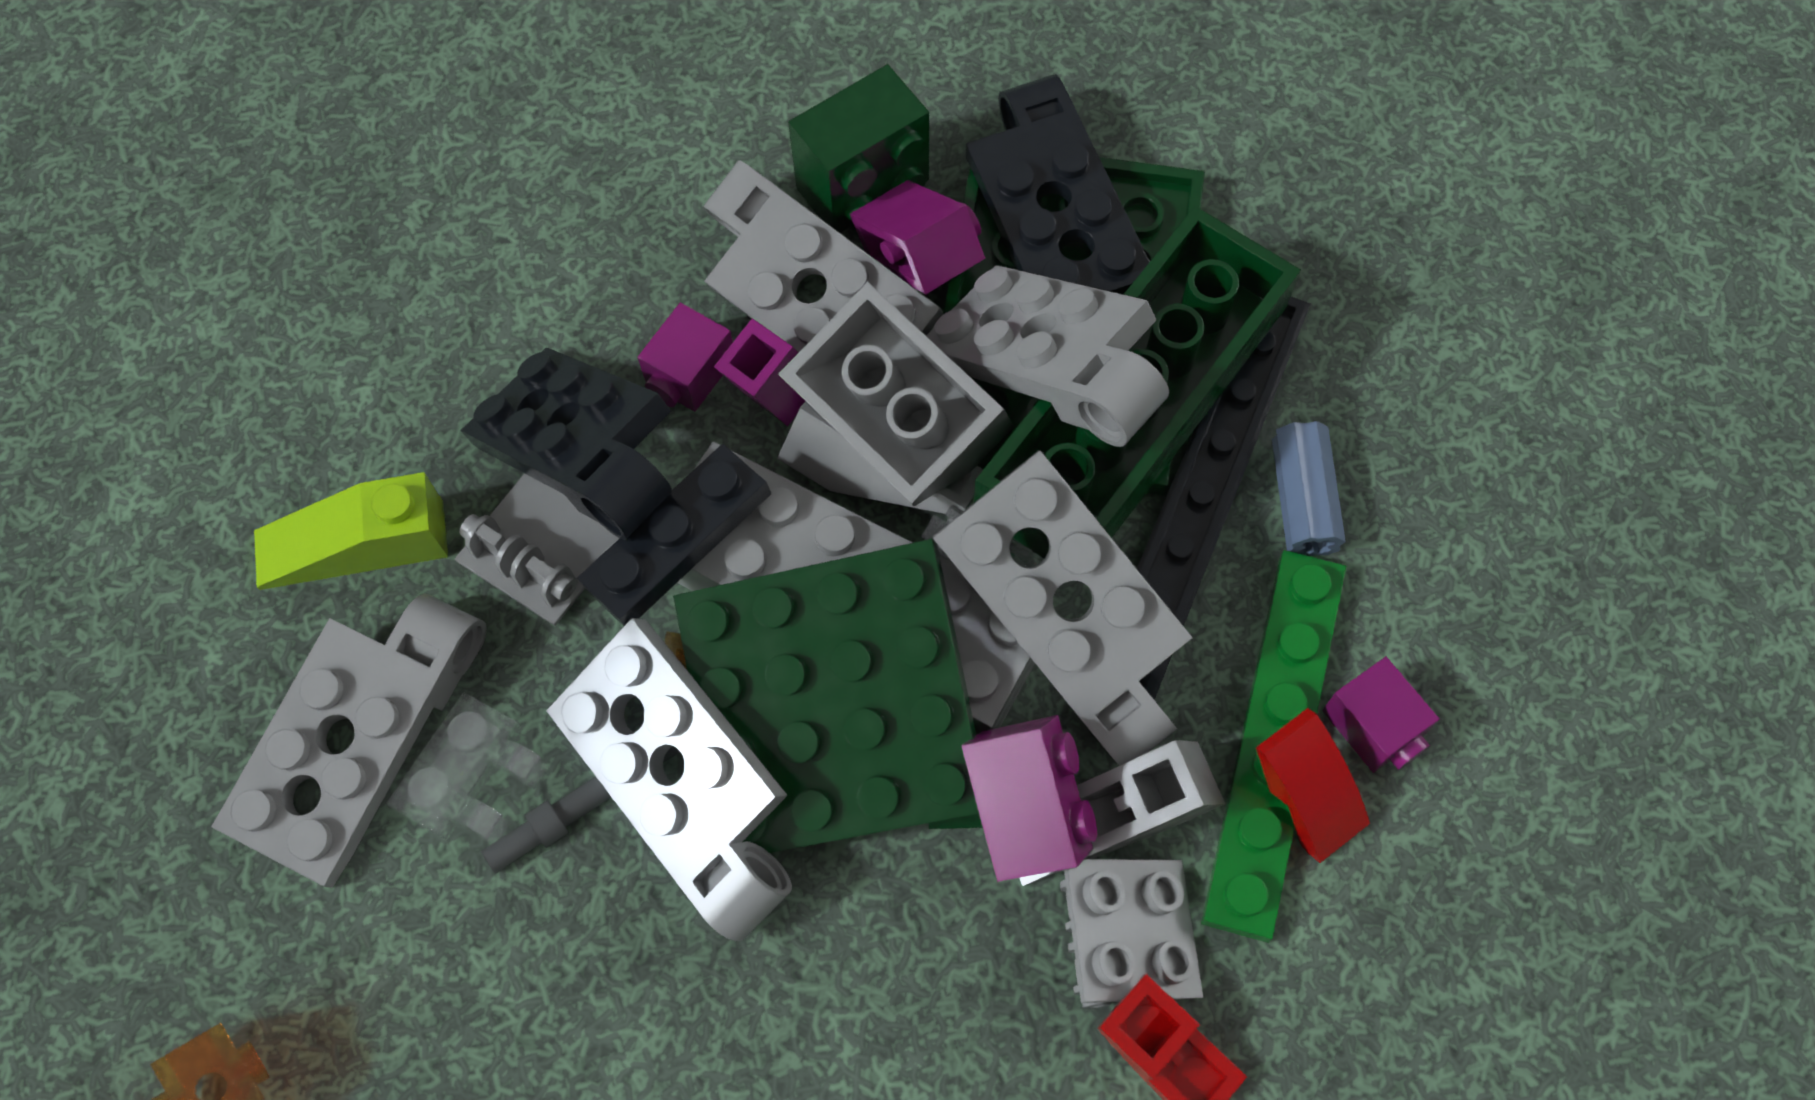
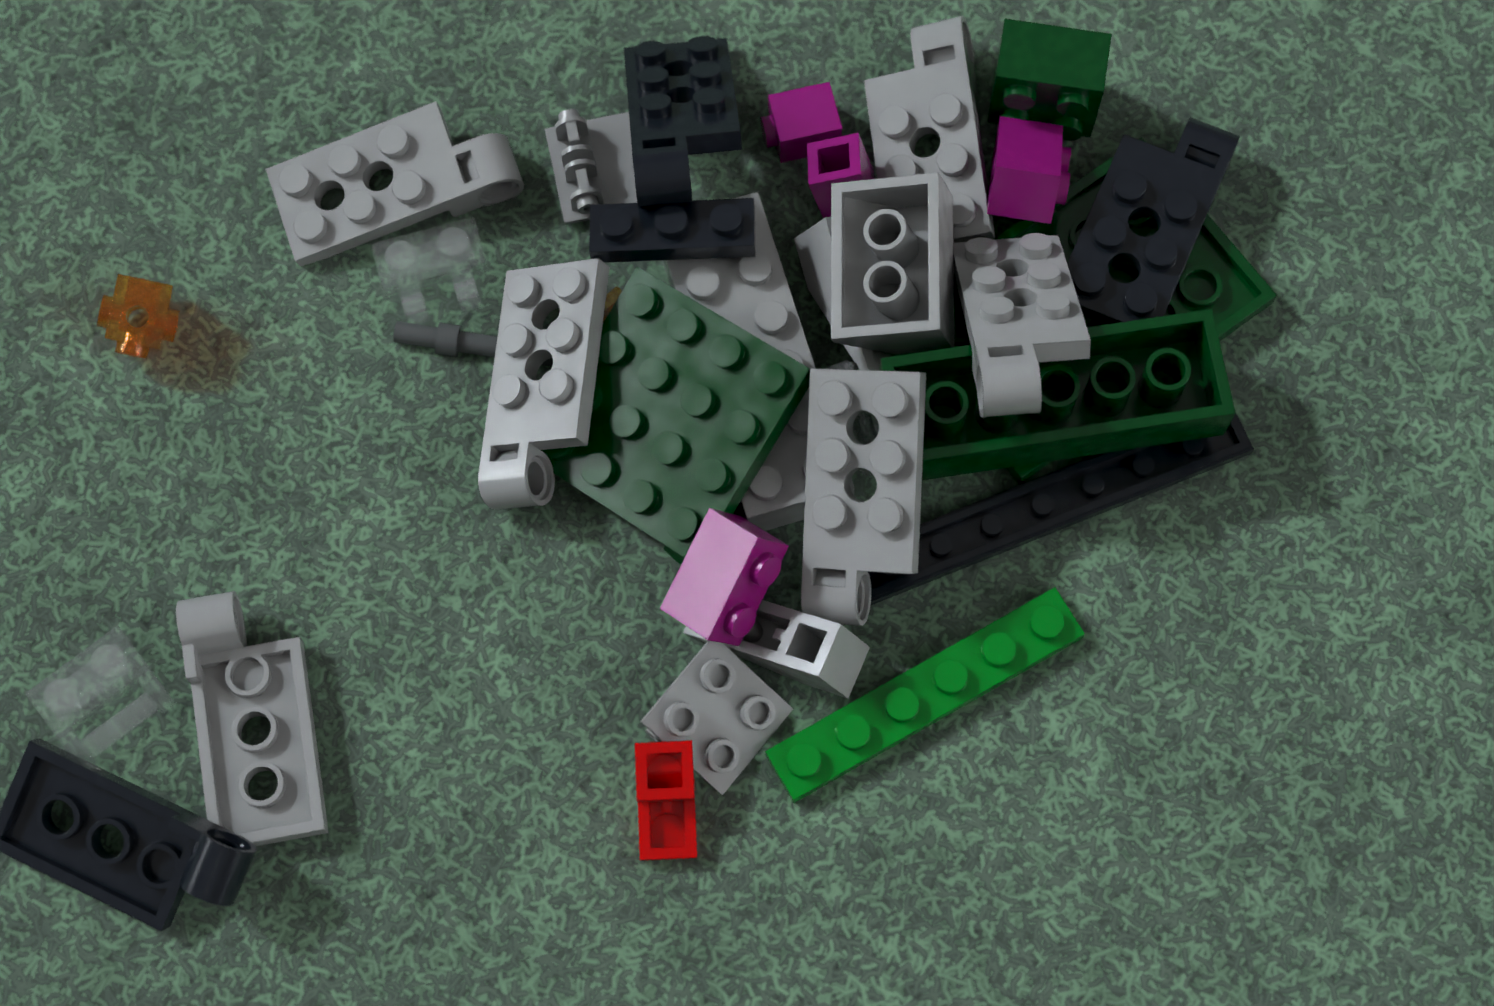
camera: 45 degrees right, 5 degrees up
(354, 532) = (501, 60): lime slope -> none
(1308, 489) = (1113, 564): sand blue axle -> none
(1315, 783) = (908, 735): red slope -> none
(1382, 716) = (1000, 740): magenta brick -> none

